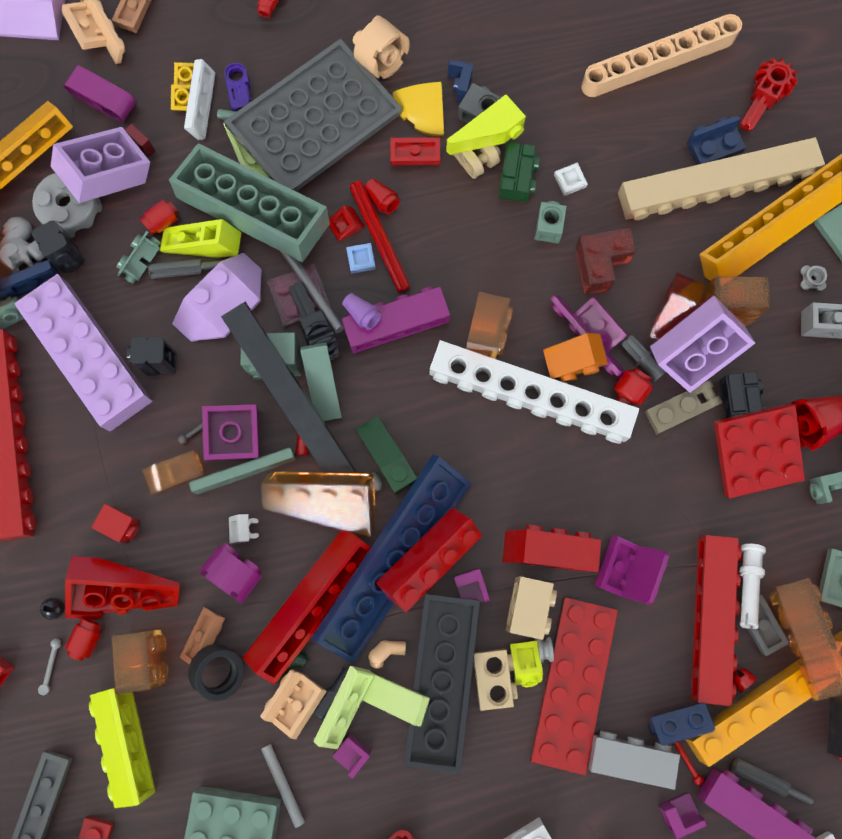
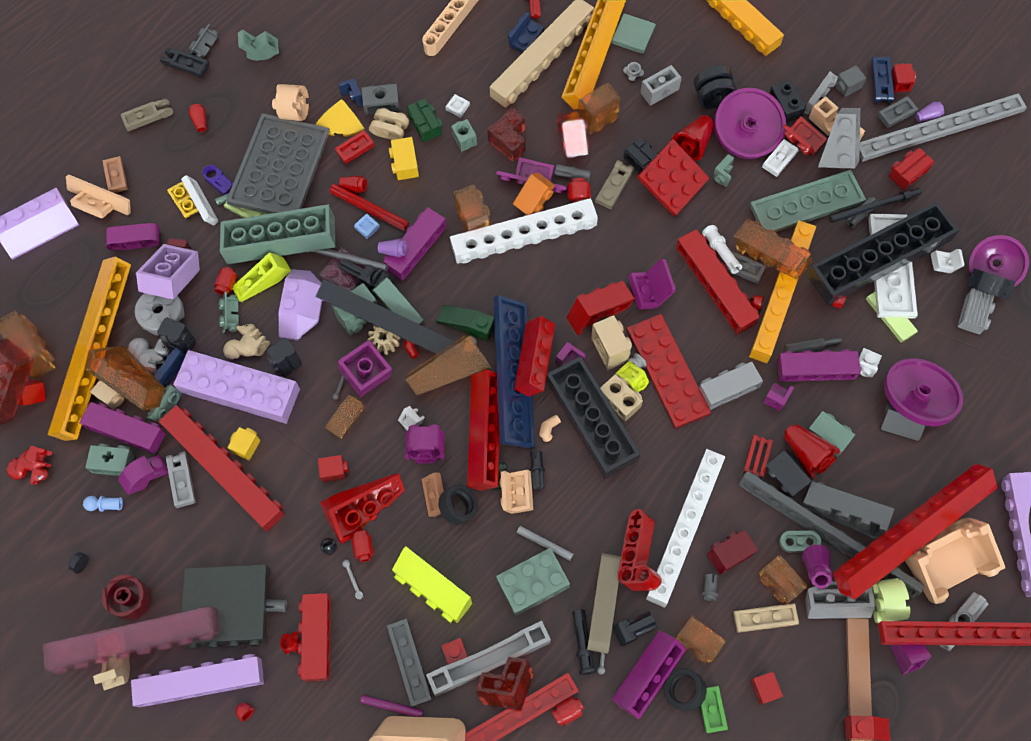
camera: 35 degrees left, 10 degrees down
(45, 424) = (244, 443): none -> yellow brick
(131, 311) = (249, 345): none -> tan animal
(139, 661) = (406, 528): clear orange brick -> none
(180, 268) = (260, 302): dark grey axle -> none
(242, 471) = (387, 387): sand green tile -> none
(271, 416) = (380, 345): none -> tan gear
(343, 708) = (547, 472): yellowish green tile -> none
(345, 222) = (342, 213): red slope -> none
(352, 755) = (572, 494): magenta panel -> none
(396, 700) = (572, 442): yellowish green tile -> none
(460, 204) = (404, 158): none -> yellow brick
(490, 128) = (392, 104): neon yellow slope -> none
(681, 724) = (739, 345): dark blue bracket -> none
(697, 779) = (773, 372): red hinge -> none
(702, 344) = (599, 140): lavender brick -> none

